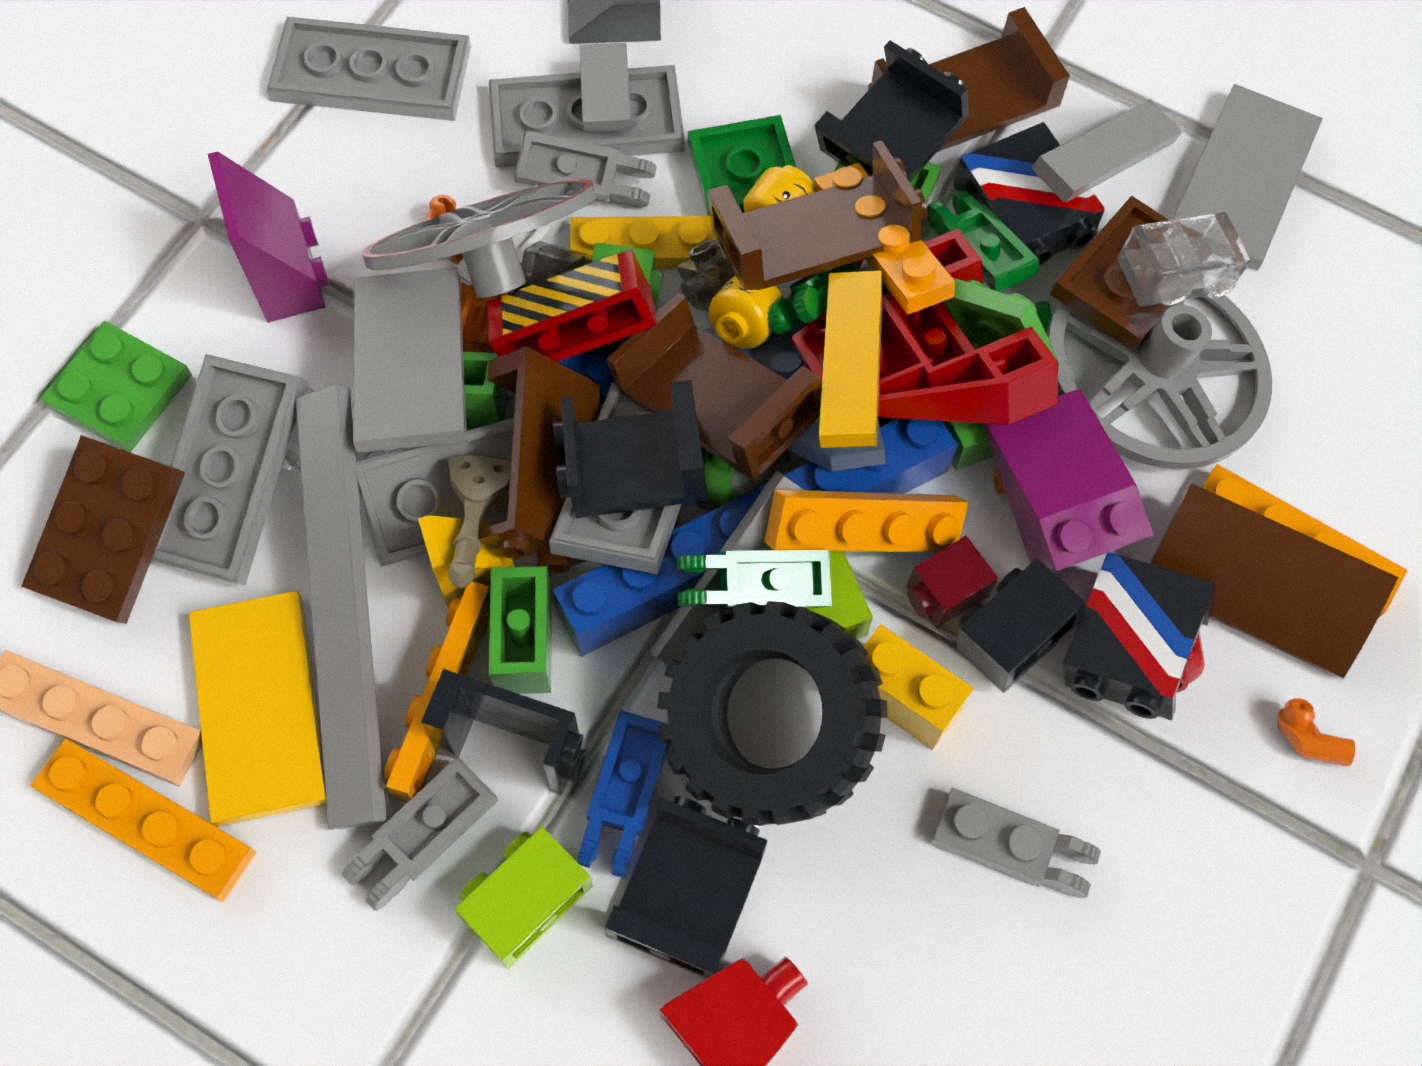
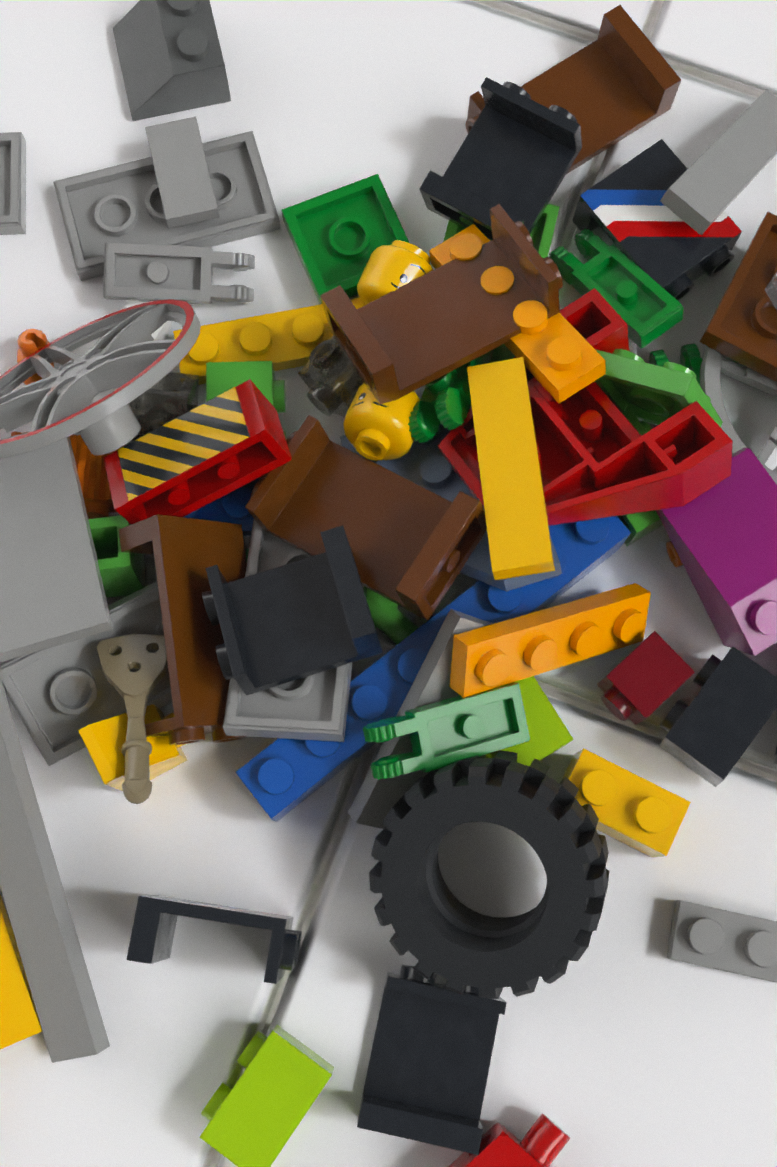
camera: 10 degrees left, 10 degrees up
(422, 830) = (150, 1044): light grey hinge -> none
(468, 619) = (141, 869): light orange plate -> none
(520, 629) = (209, 816): bright green brick -> none
(624, 788) = (348, 962): blue hinge -> none

